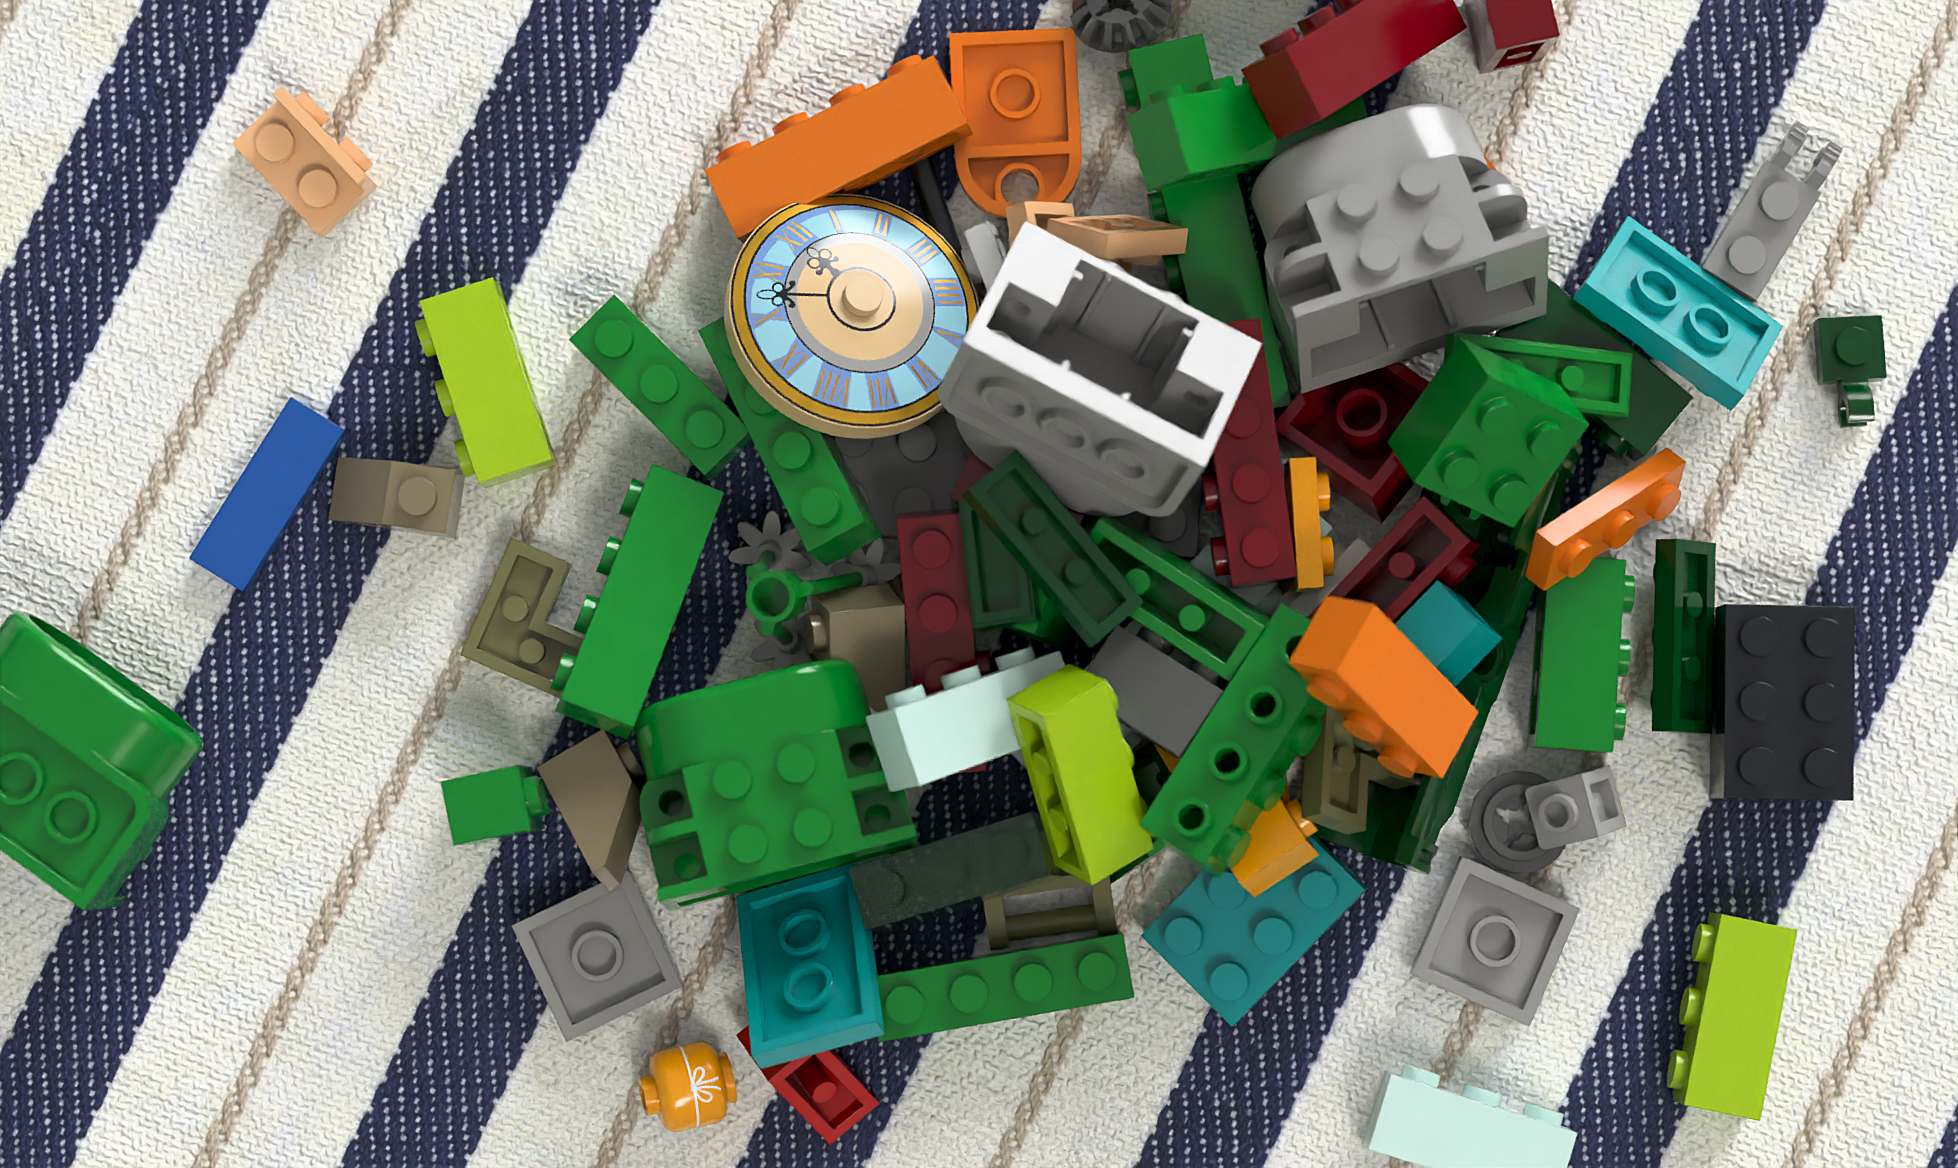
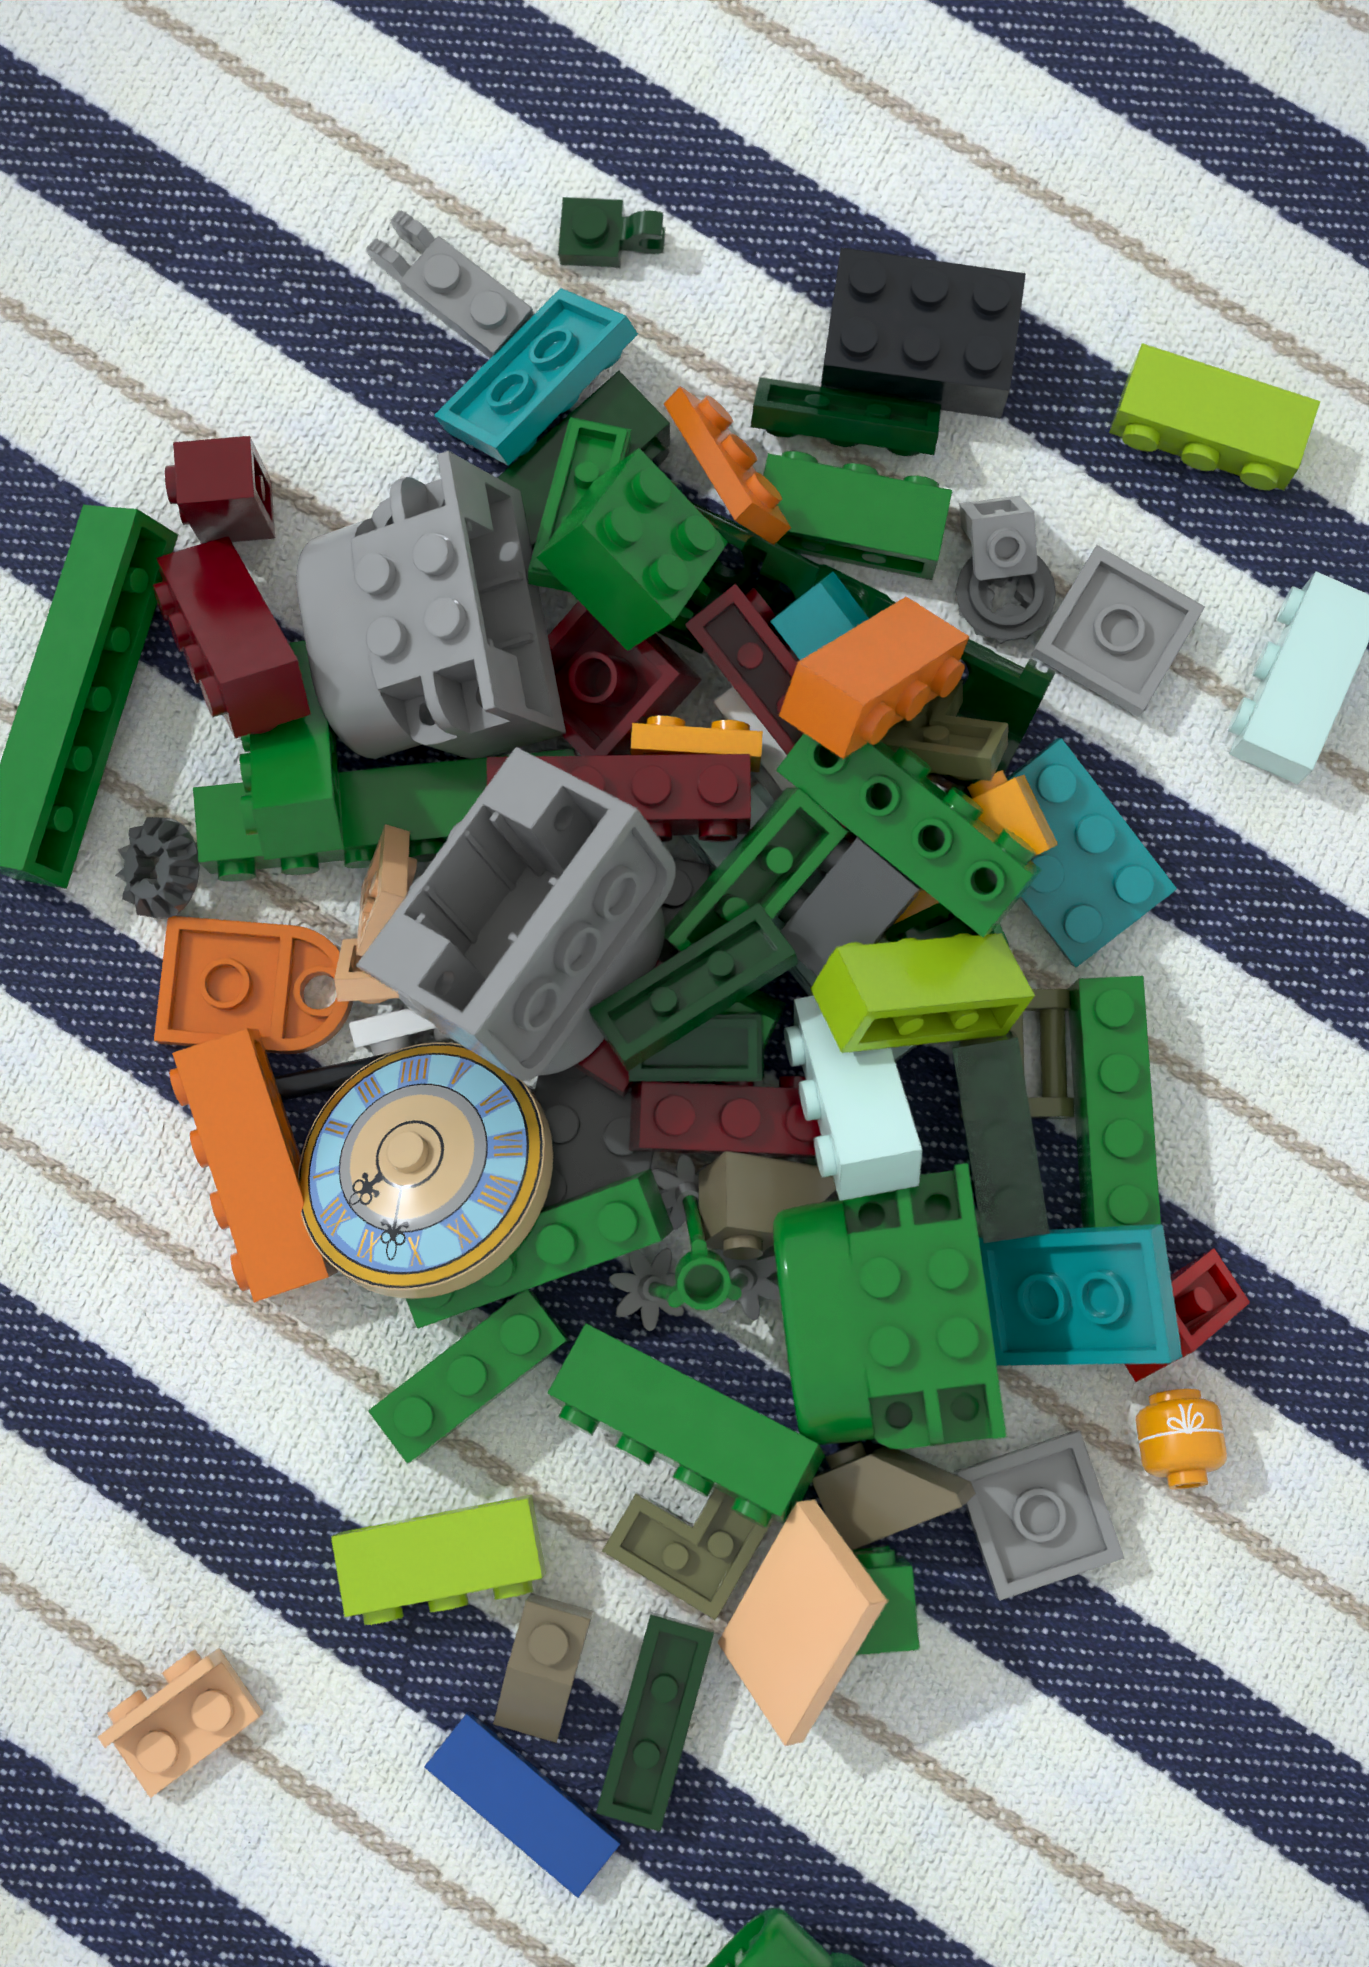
camera: 80 degrees left, 5 degrees down
(359, 610) = (655, 1721): none -> dark green plate
(466, 732) = (801, 1622): none -> light nougat tile

